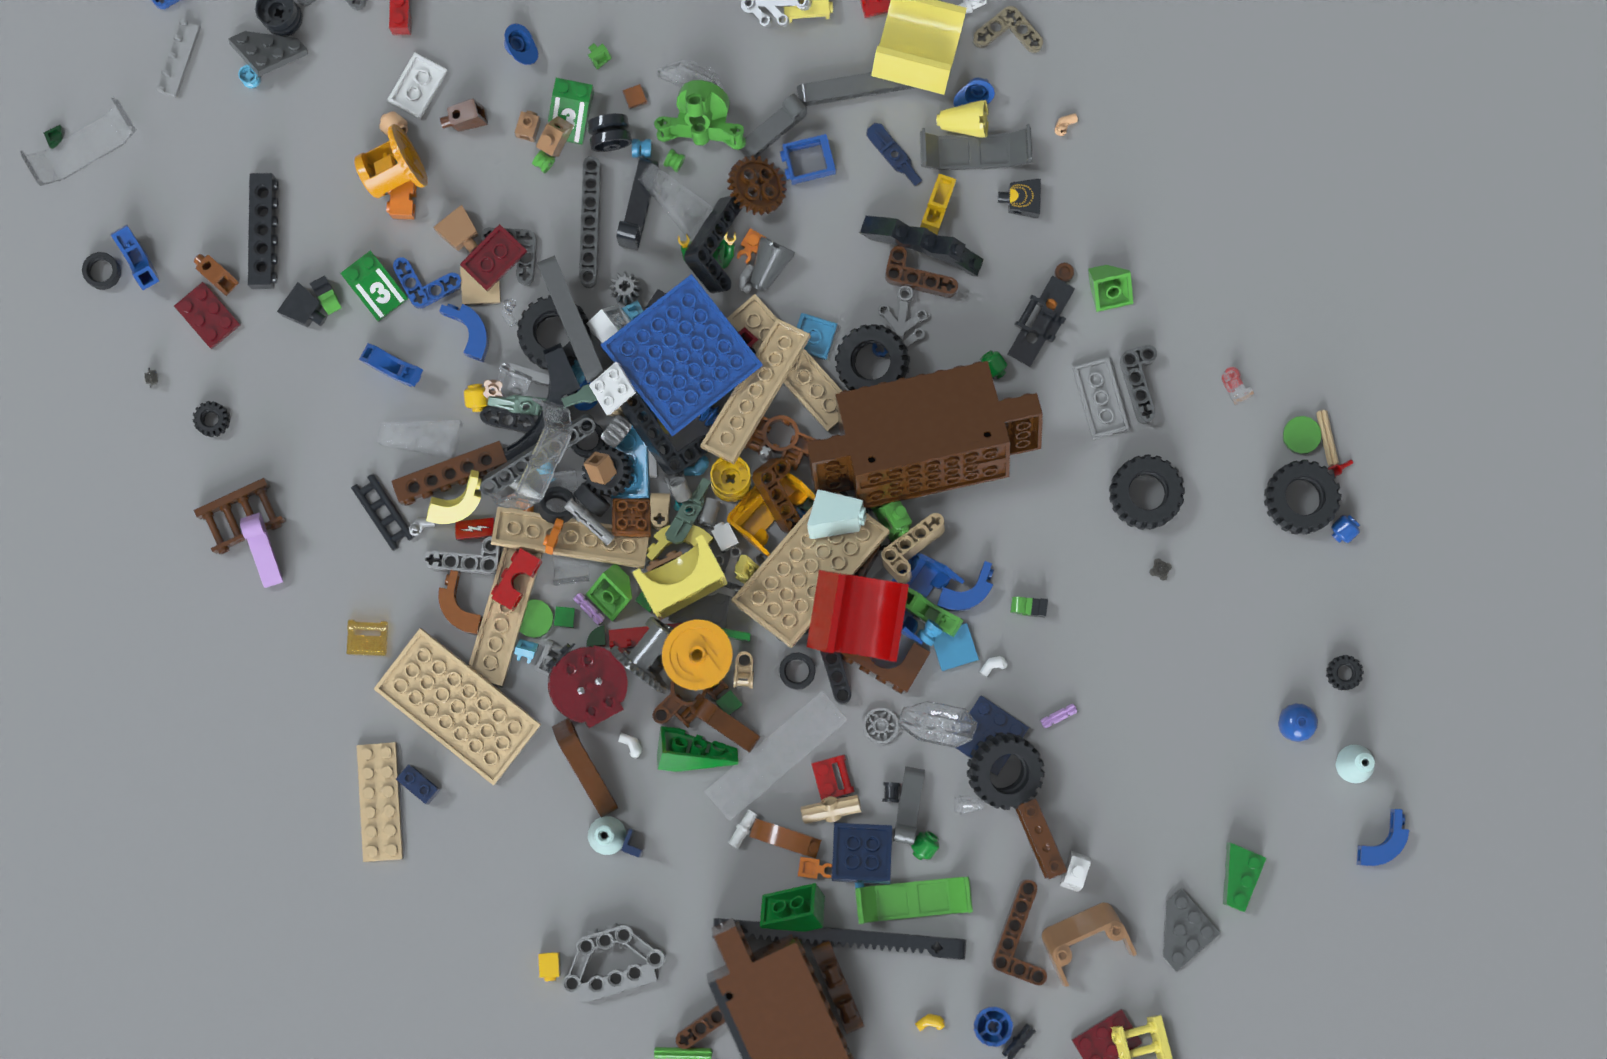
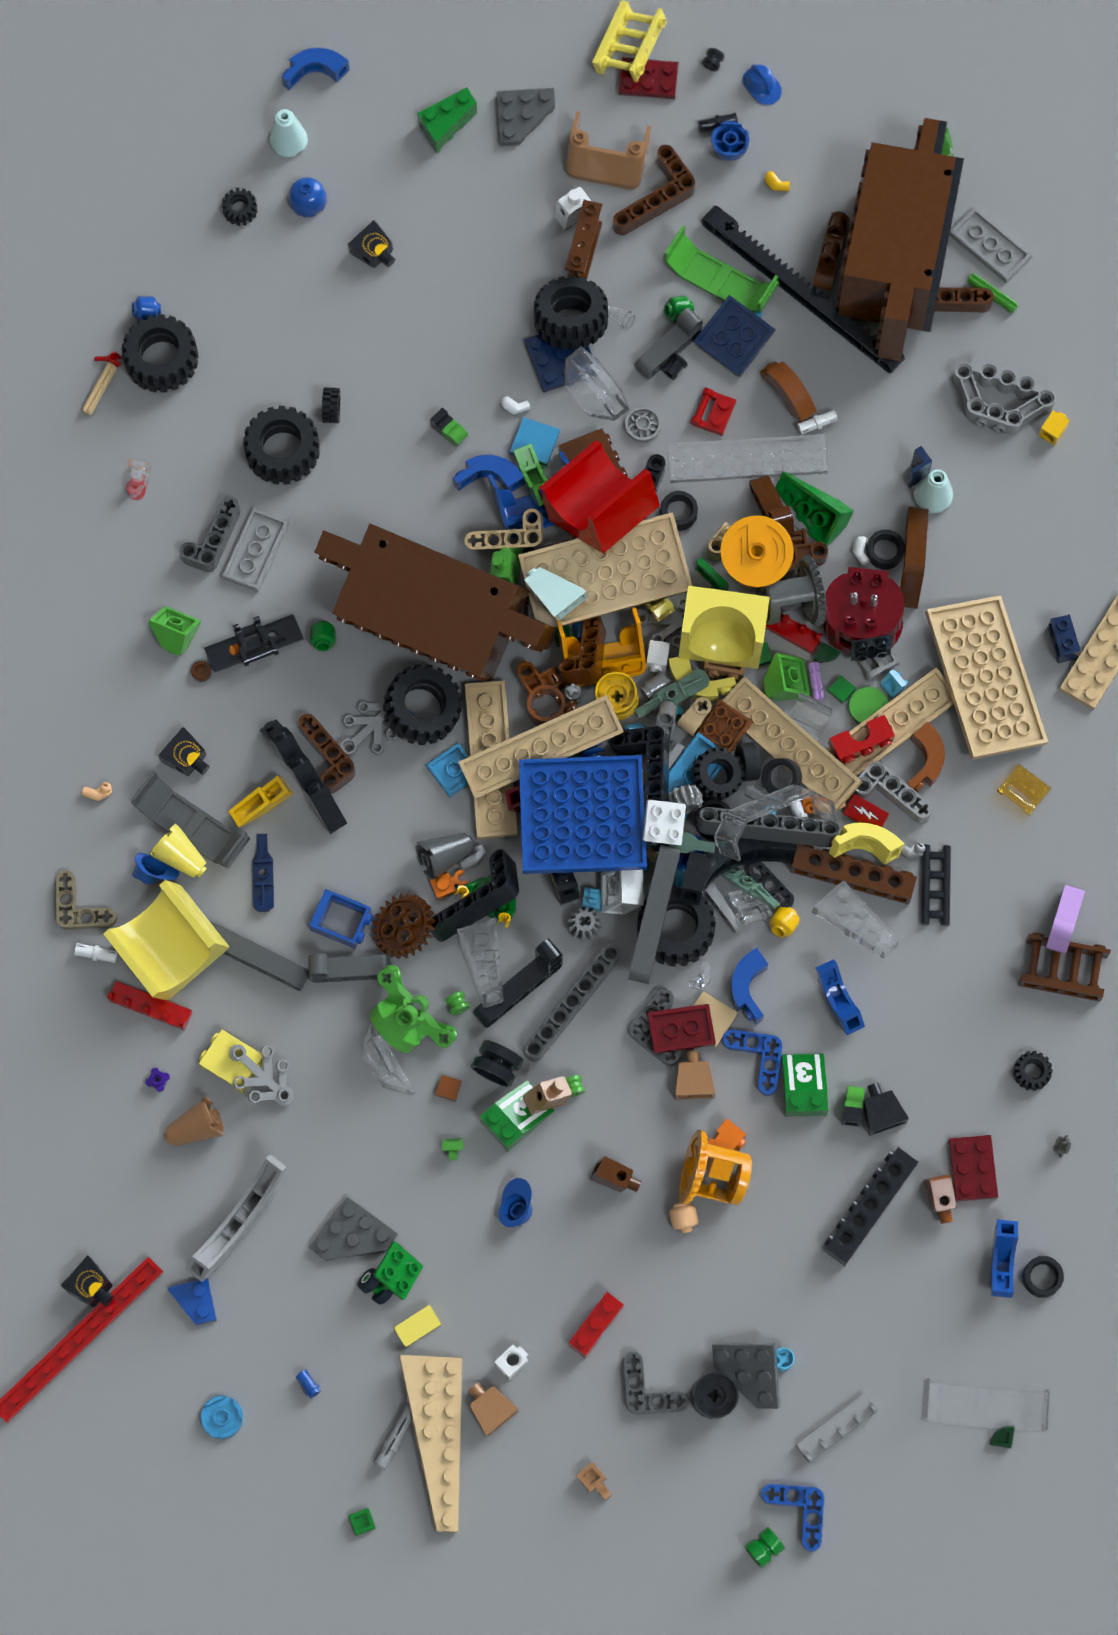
camera: 140 degrees left, 10 degrees down
(417, 85) = (635, 1241): white tile -> none
(497, 385) = (765, 912): plate -> none
(527, 126) = (563, 1128): medium nougat brick -> none
(551, 540) = (808, 744): orange plate -> none
(591, 523) = (766, 745): light grey pin -> none
(600, 468) = (723, 770): medium nougat brick -> none
(611, 773) = (885, 535): none -> black tyre
(646, 148) = (477, 1034): dark azure wheel -> none
(793, 909) = (823, 331): green slope -> none
(810, 868) = (783, 353): orange plate -> none
(831, 809) = (733, 386): tan piece -> none
(931, 630) = (547, 457): dark azure wheel -> none
(1058, 716) = (493, 332): lavender axle -> none
(1134, 553) = (331, 405): none -> black tyre
(1165, 569) = (319, 378): clear smoke plate -> none
(1210, 717) = (372, 246): none -> black torso
(1301, 435) = (117, 405): bright green tile -> none

